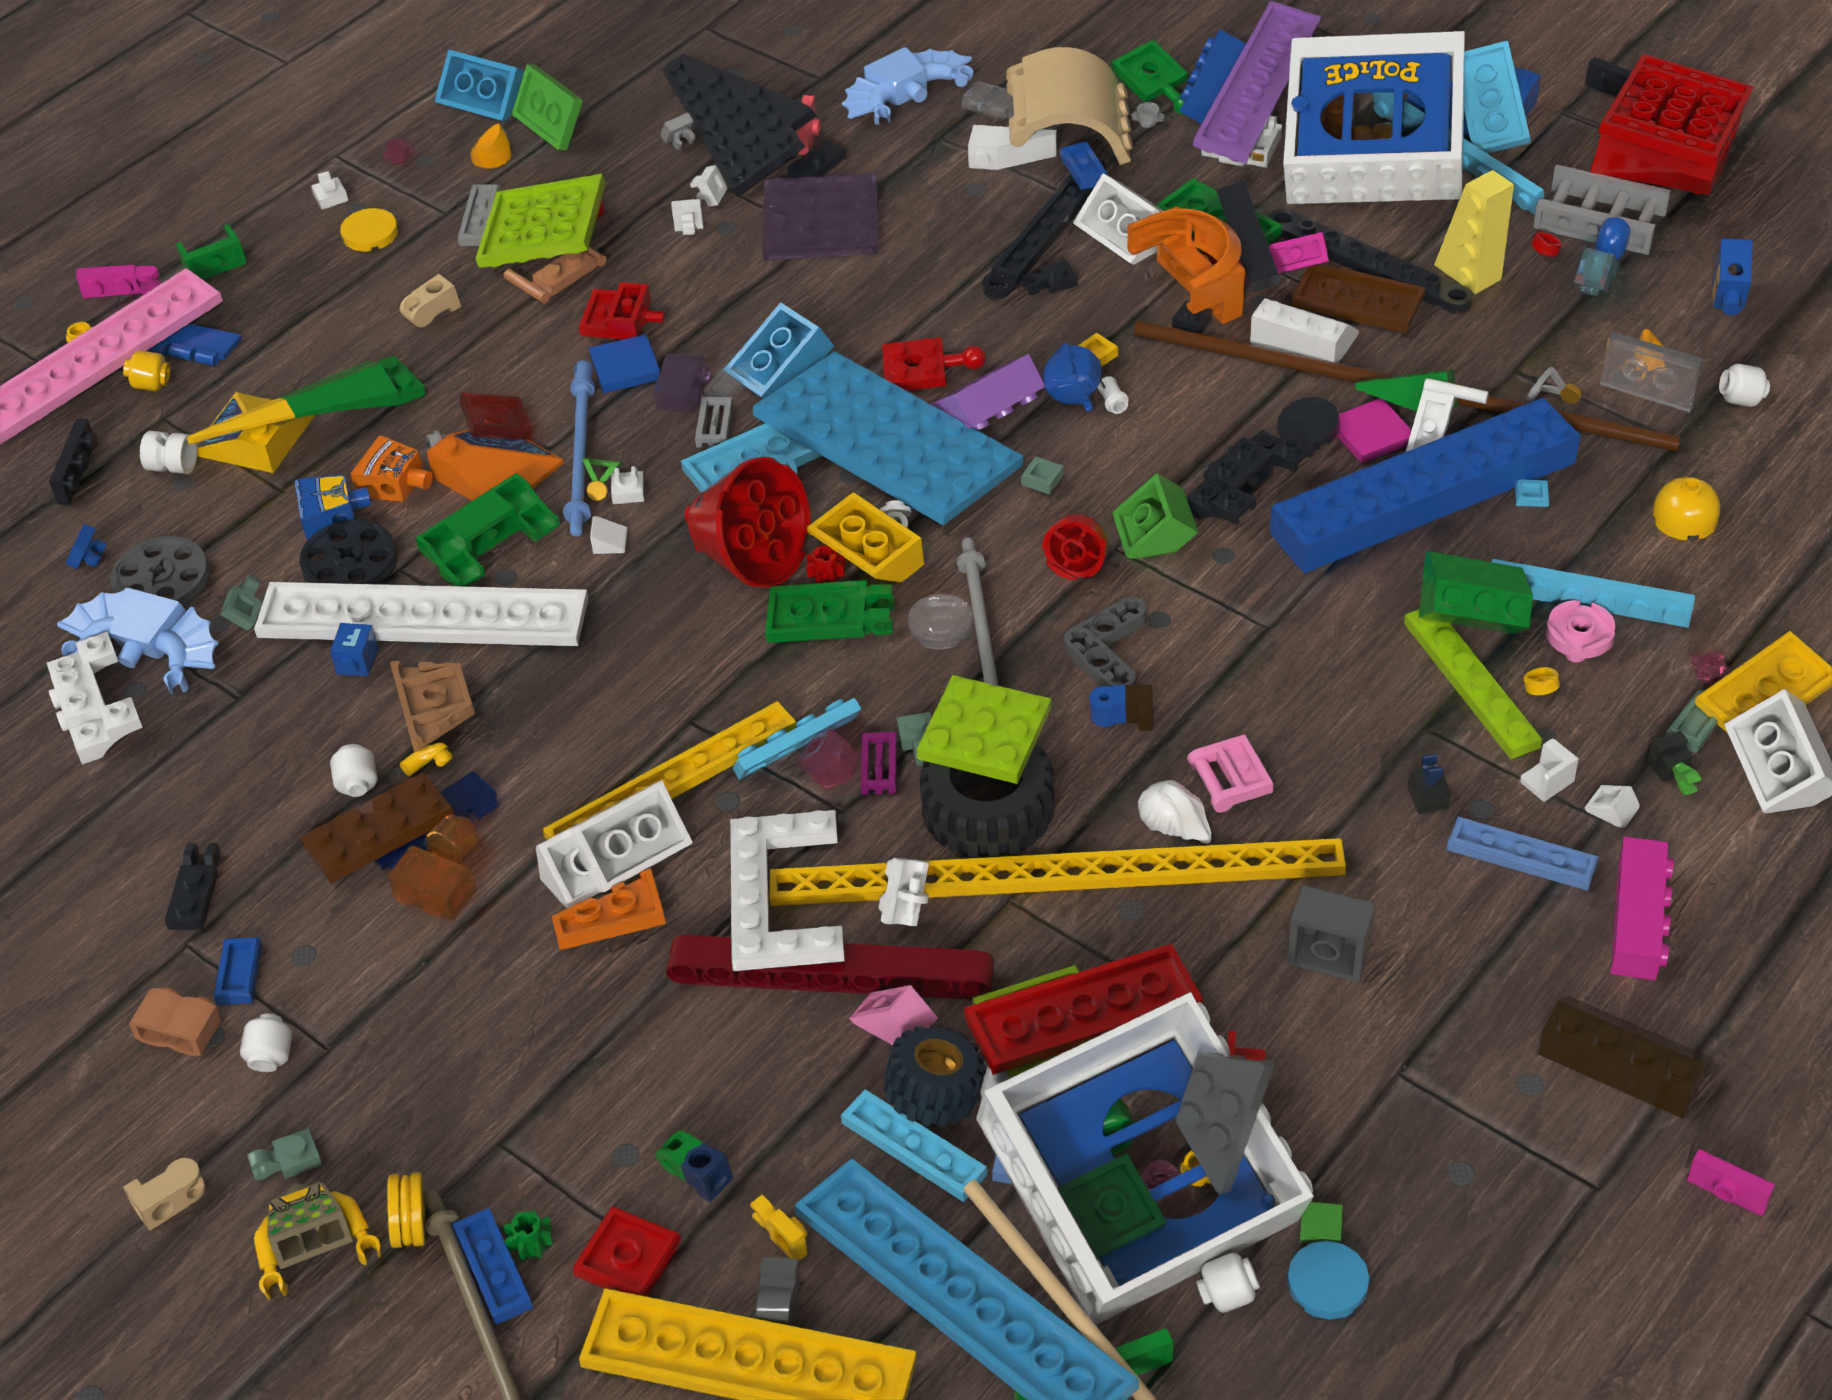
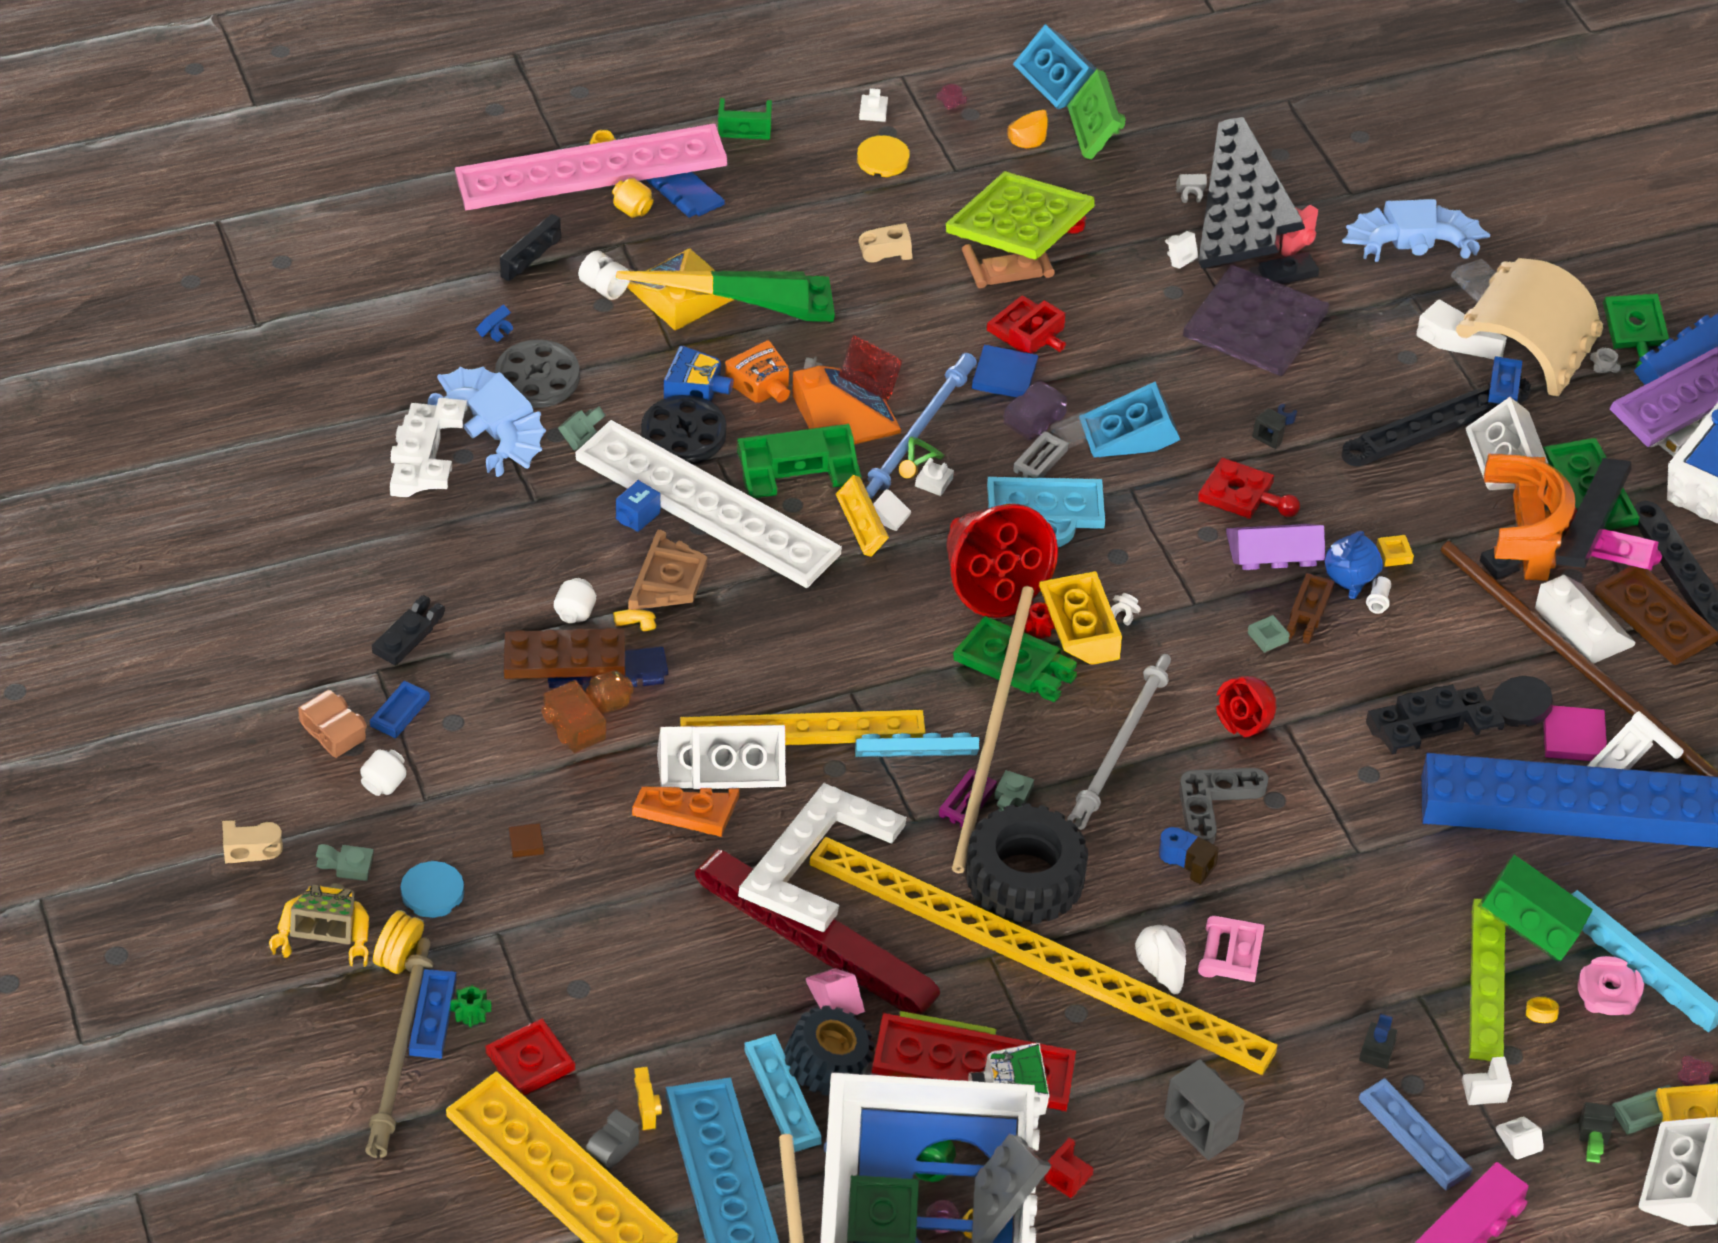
camera: 25 degrees right, 0 degrees up
(116, 280) = (658, 108): dark pink hinge -> none
(400, 1136) = (432, 889): none -> dark azure tile
(465, 1033) = (526, 840): none -> reddish brown tile
(476, 214) = (977, 182): light grey tile -> none
(585, 552) = (862, 516): none -> yellow tile
(687, 216) = (1144, 267): white tile -> none
(695, 1164) = (619, 1021): dark blue leg -> none
(829, 759) = (927, 776): clear pink brick -> none
(861, 689) = (993, 729): none -> tan piece
(888, 437) = (1167, 539): dark azure plate -> none
(904, 891) = (907, 905): white hips -> none
(907, 297) = (1271, 425): none -> pearl dark grey piece
(940, 621) = (1097, 711): clear tile -> none
(984, 729) = (1050, 812): lime plate -> none
(1053, 277) = (1410, 468): black plate -> none
(1059, 432) = (1310, 605): none -> reddish brown hinge
(1136, 992) = (1016, 1066): none -> torso
(1155, 519) = (1331, 716): bright green slope -> none
(1404, 389) = (1620, 710): green slope -> none
(1532, 493) = (1669, 855): medium azure tile -> none

